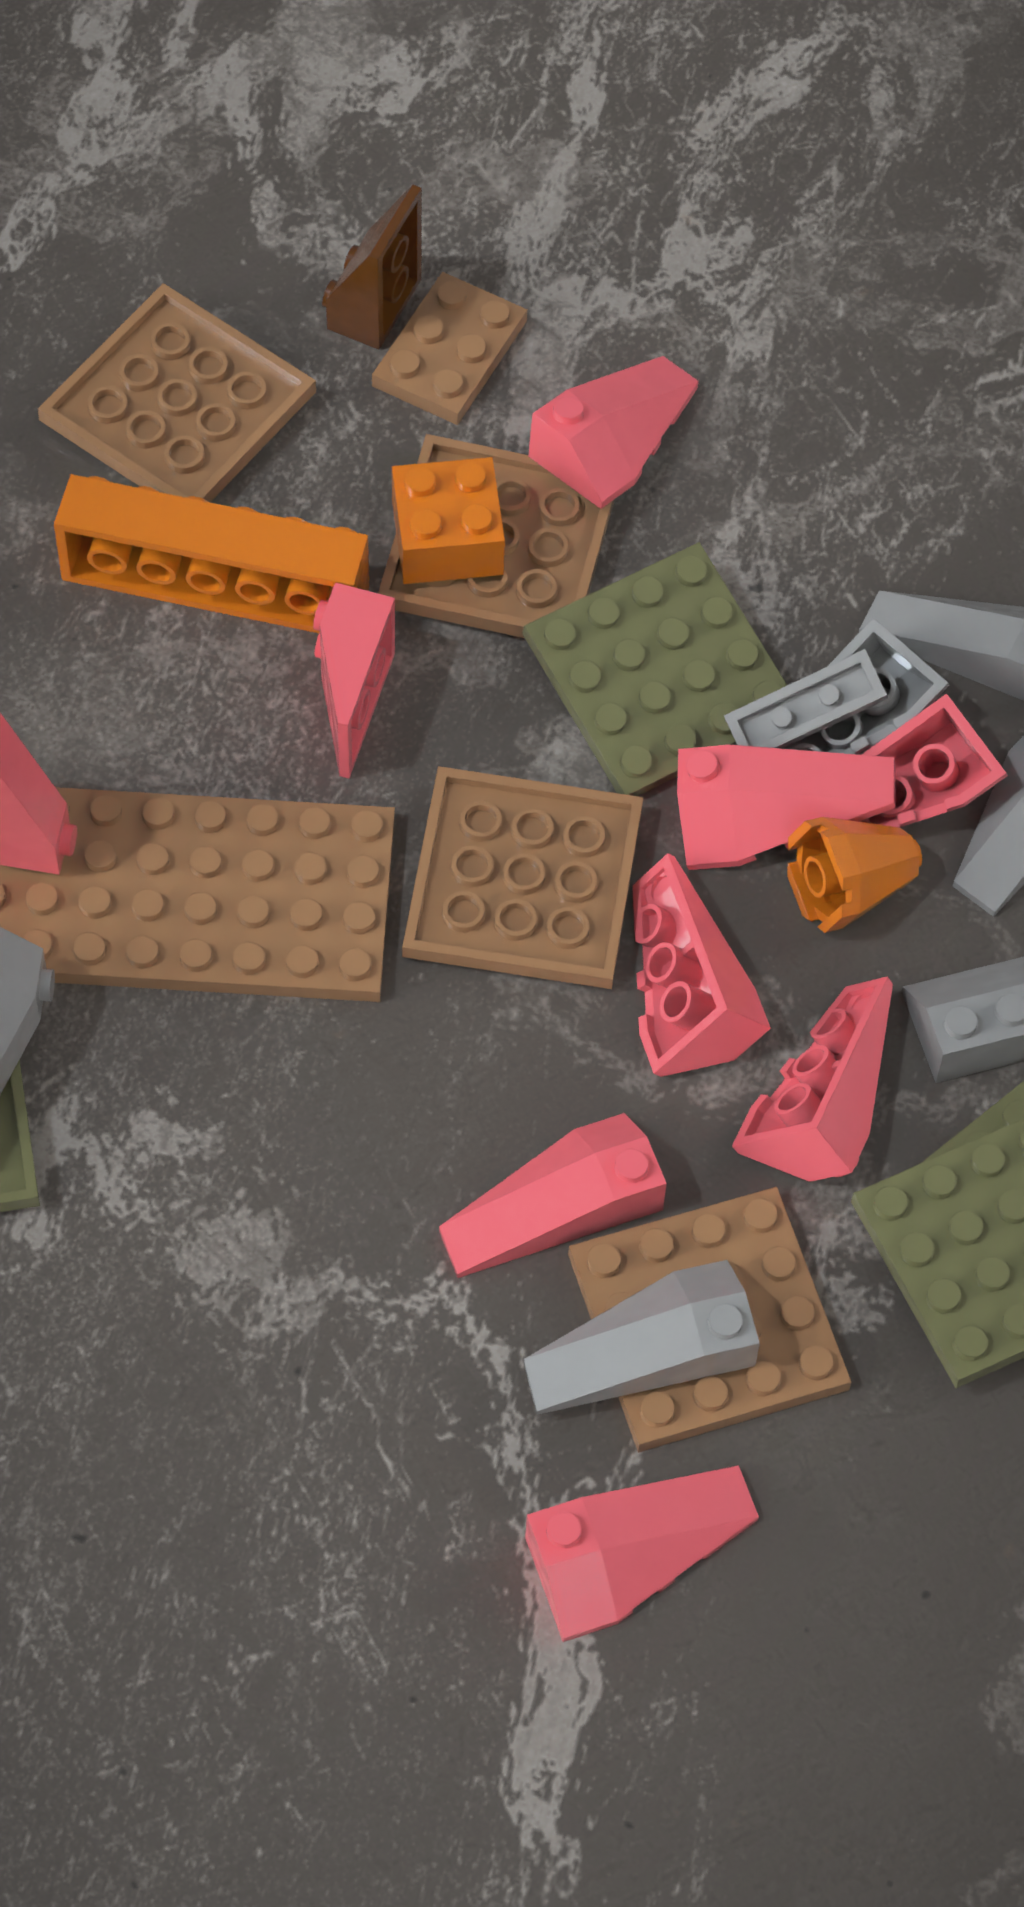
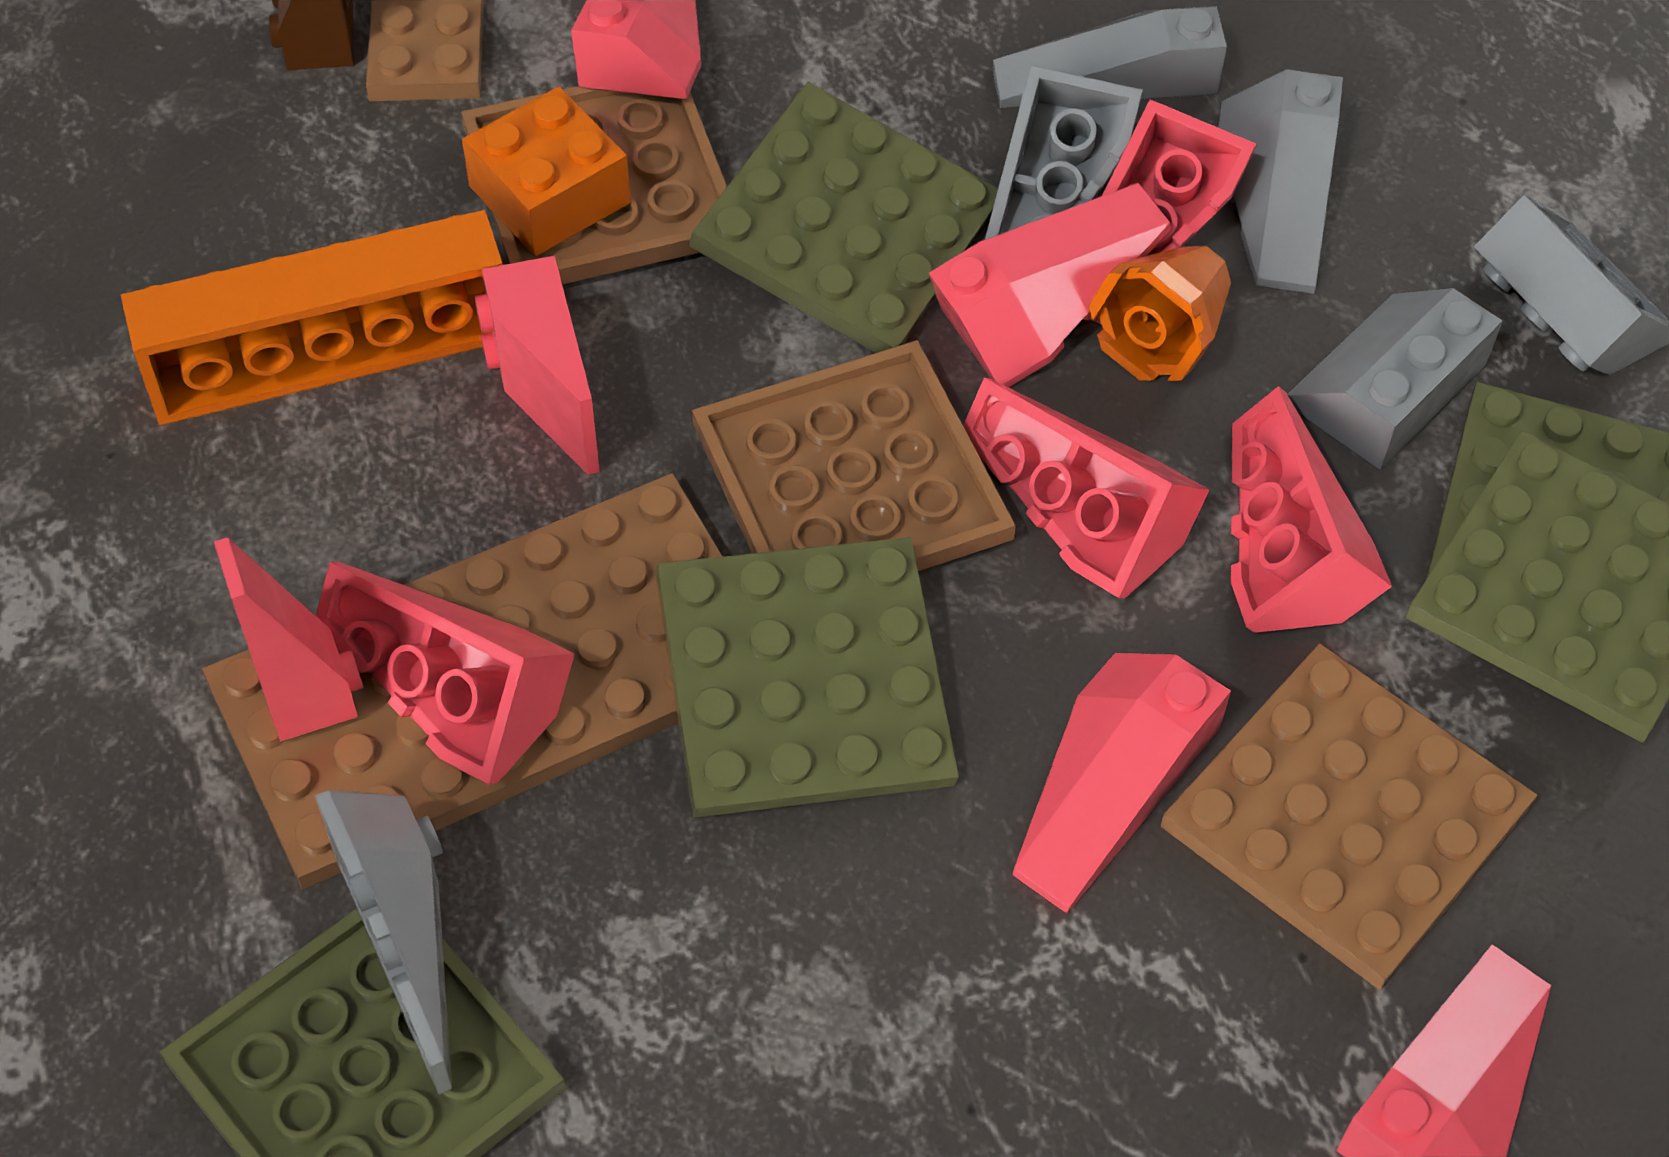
camera: 30 degrees left, 5 degrees down
(141, 878) = (459, 674): none -> coral wedge
(177, 398) = (172, 191): medium nougat plate -> none
(382, 1009) = (804, 676): none -> olive plate
(662, 1336) = (1330, 853): light grey wedge -> none
(808, 704) = (1024, 172): light grey plate -> none

